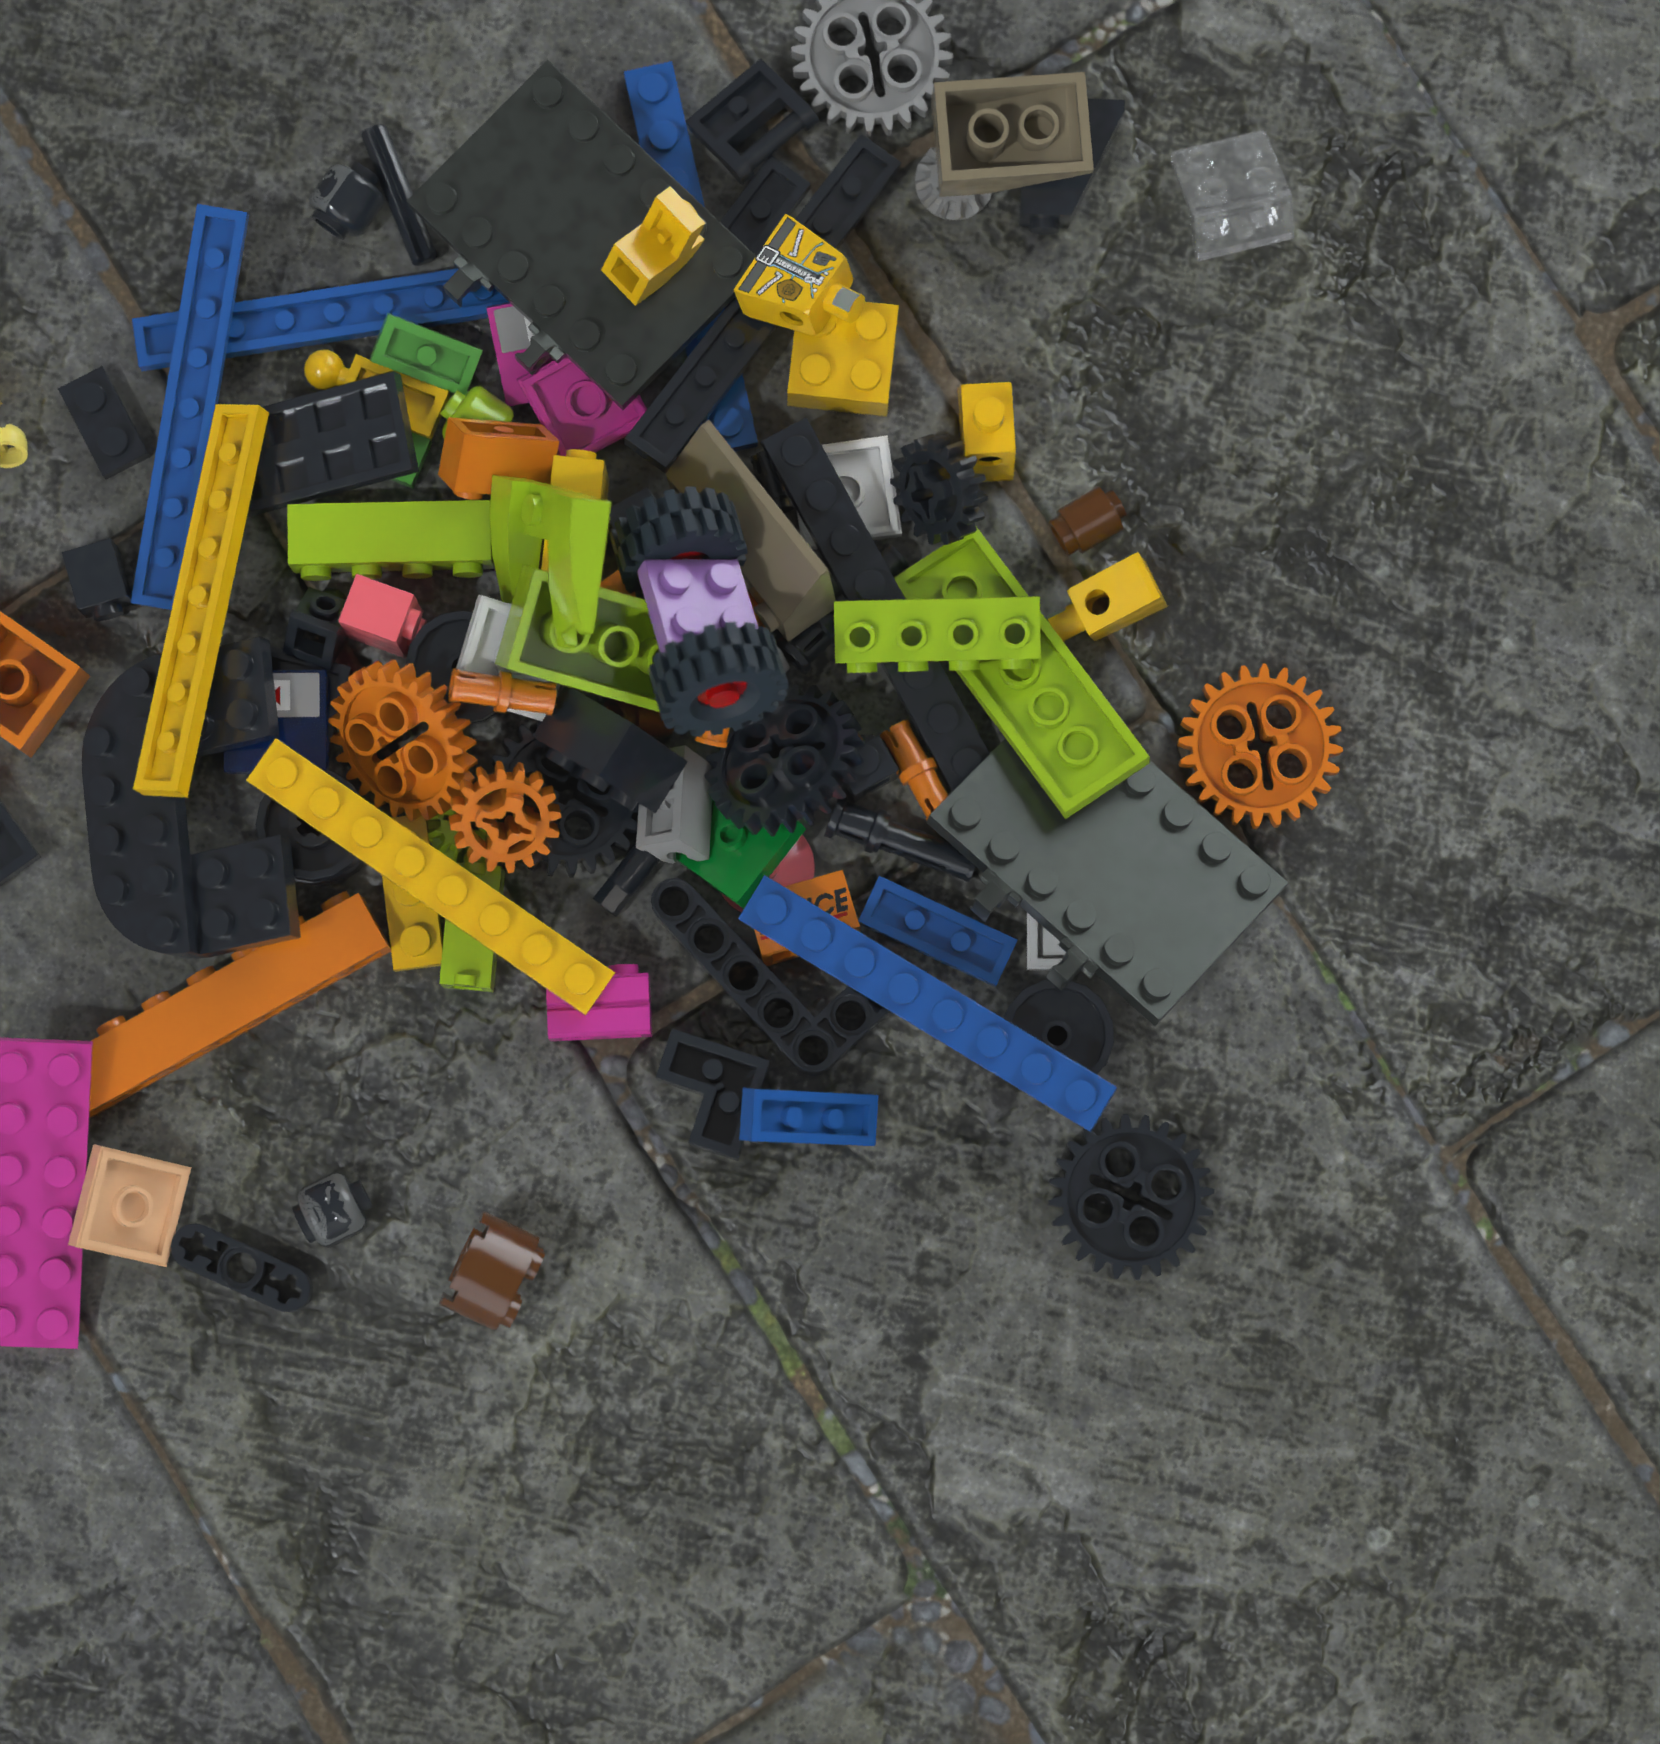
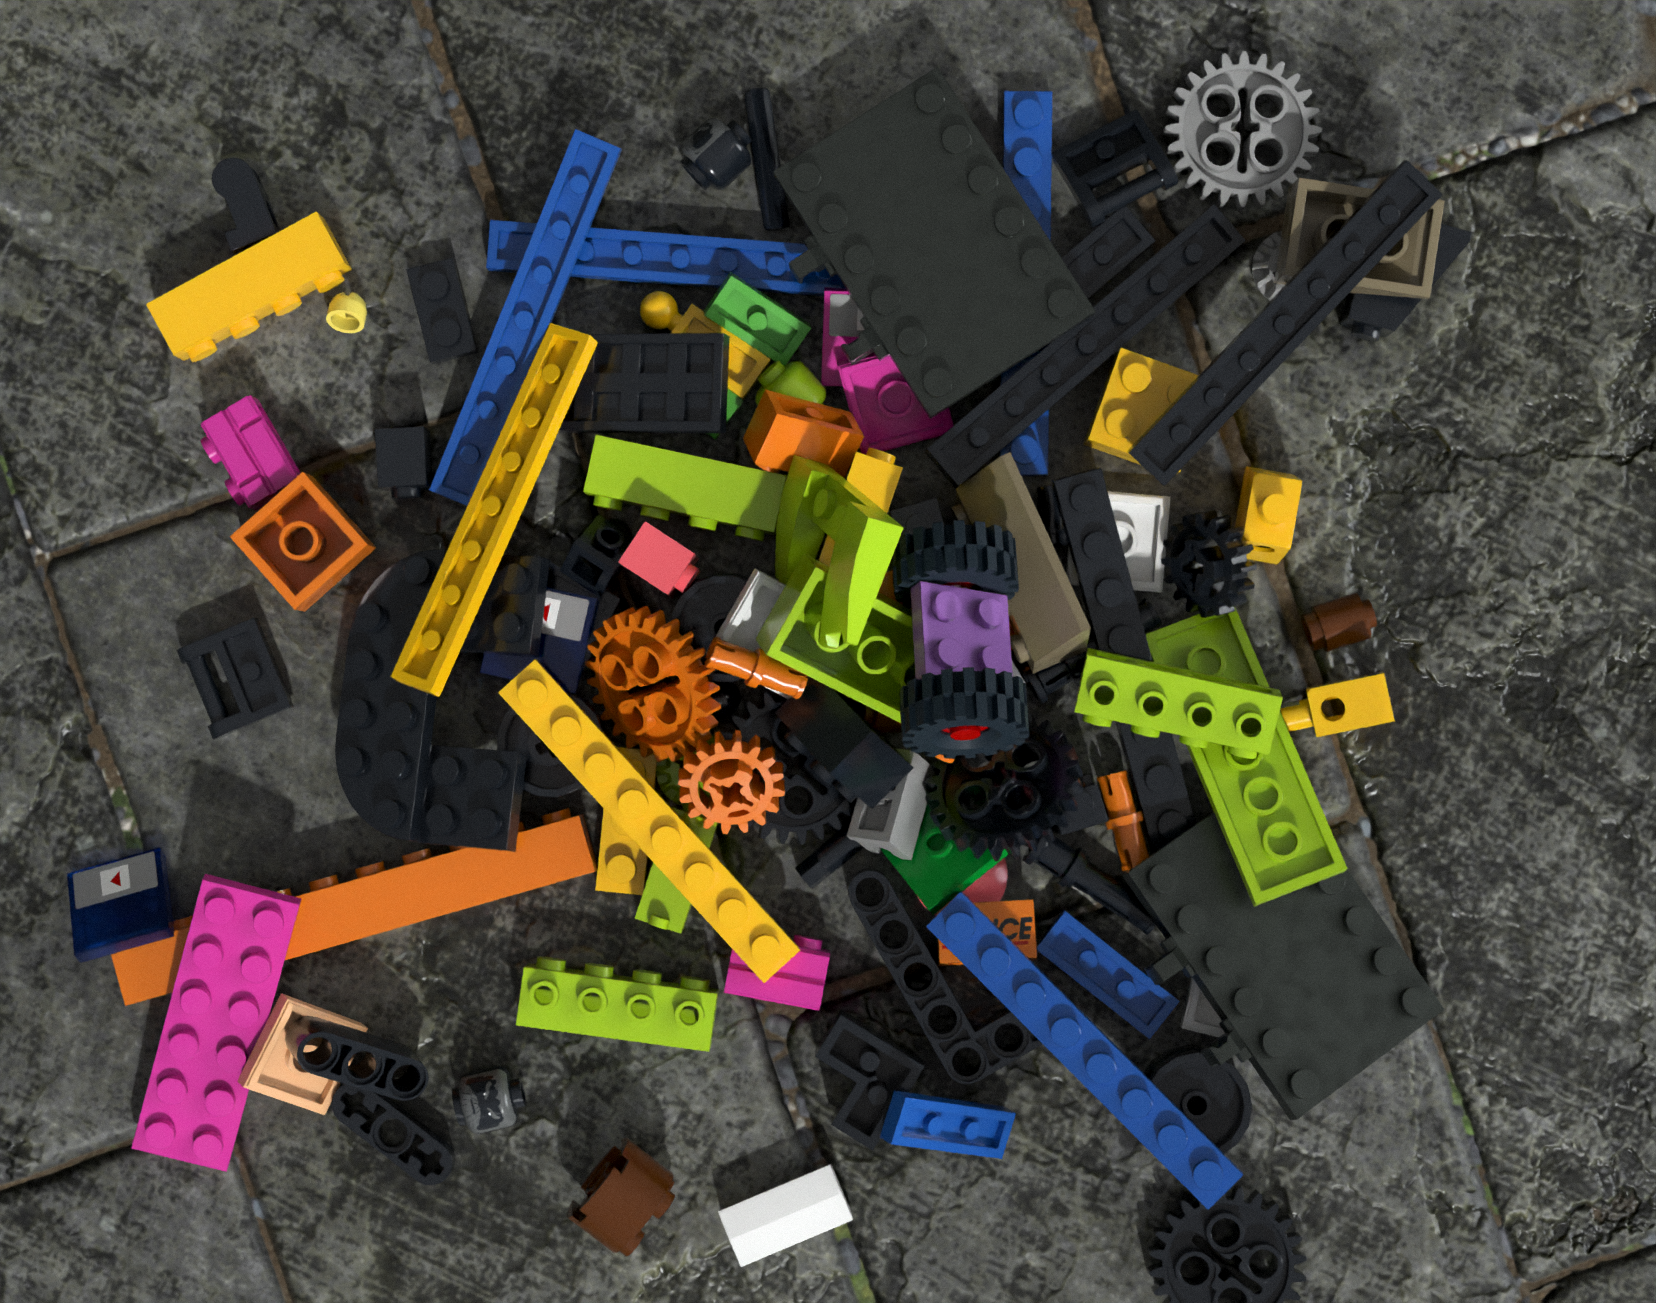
camera: 15 degrees right, 5 degrees up
(207, 1203) = (338, 1047): none -> black beam
(443, 1081) = (617, 1005): none -> lime brick
(486, 743) = (728, 697): none -> black hinge
(656, 248) = (998, 276): yellow brick -> none
(665, 1254) = (786, 1215): none -> white piece
(798, 281) = (1125, 338): yellow torso -> none
(952, 228) = (1285, 322): none -> black plate
(1214, 754) = (1492, 873): orange gear -> none
(1234, 195) = (1551, 343): clear bracket -> none

